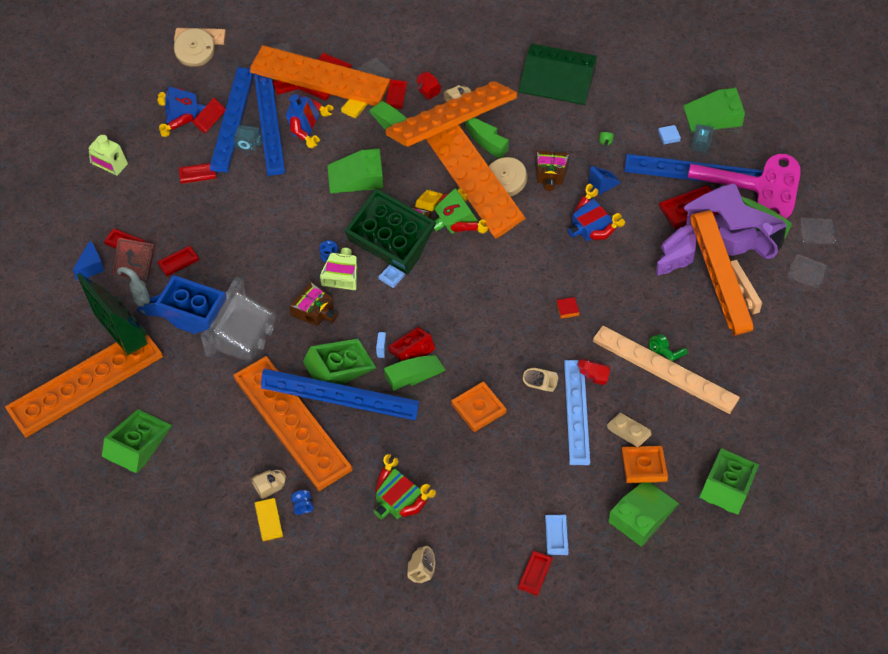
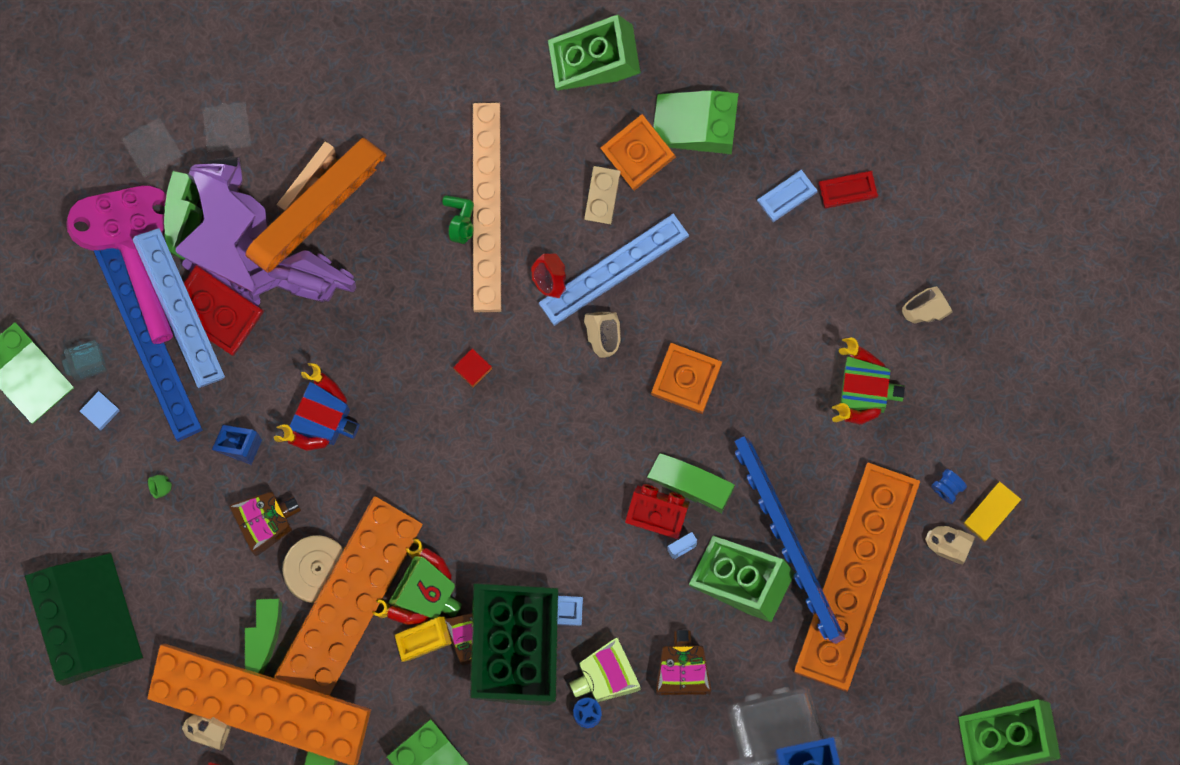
camera: 120 degrees left, 20 degrees up
(700, 184) = (178, 308): none -> light blue tile

